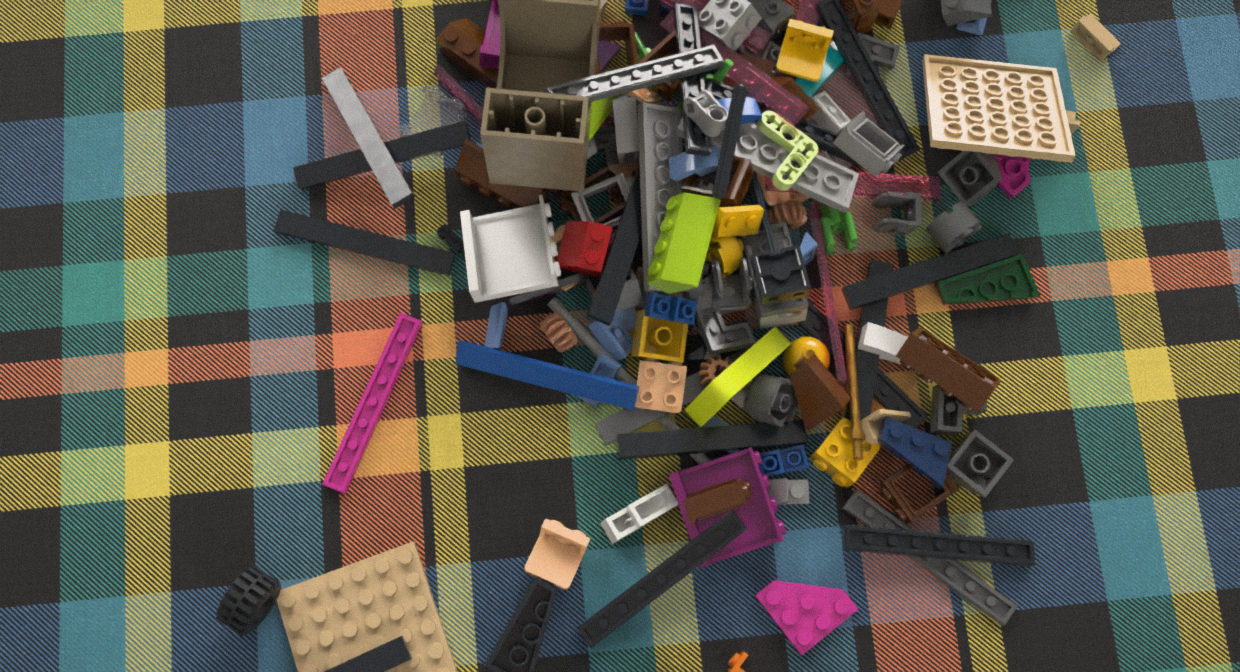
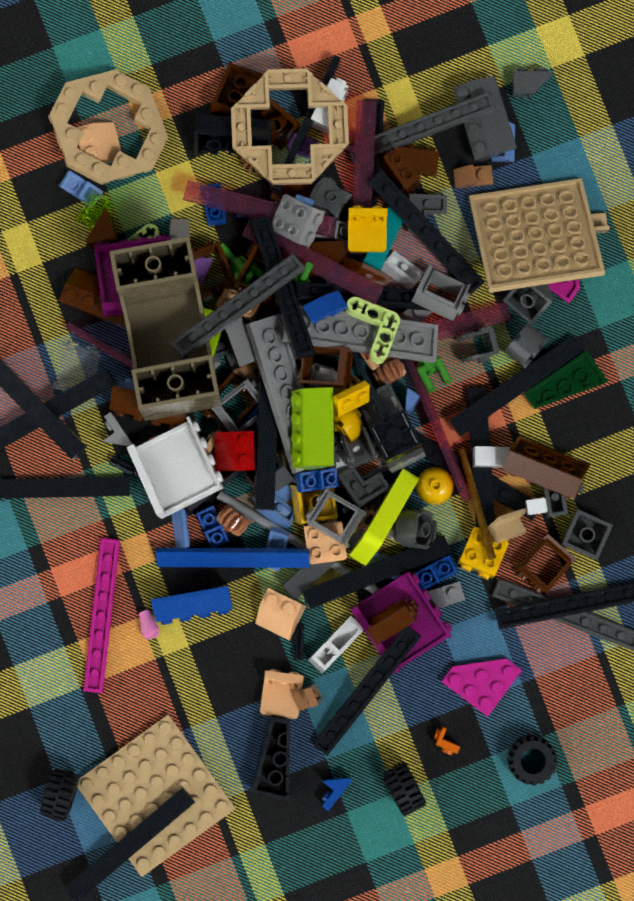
camera: 15 degrees left, 10 degrees up
(423, 428) = (149, 628): none -> bright pink cone
(455, 202) = (119, 436): none -> light grey slope
(481, 415) = (191, 604): none -> blue slope
(532, 335) = (212, 528): none -> blue slope
(582, 456) = (279, 613): none -> light nougat slope
(587, 567) = (307, 697): none -> medium nougat slope
(595, 497) = (299, 642): none -> black axle
(688, 164) = (295, 367): medium blue slope -> none
(697, 372) = (352, 526): none -> light grey window
(707, 113) = (300, 320): light grey piece -> none
(729, 142) = (327, 339): black axle -> none
(816, 391) = (448, 513): reddish brown slope -> none
(920, 449) = (538, 537): dark blue wing -> none
(923, 413) = (536, 506): none -> white slope
(932, 37) = (473, 176): none -> medium nougat slope
(1095, 36) = (609, 137): tan panel -> none

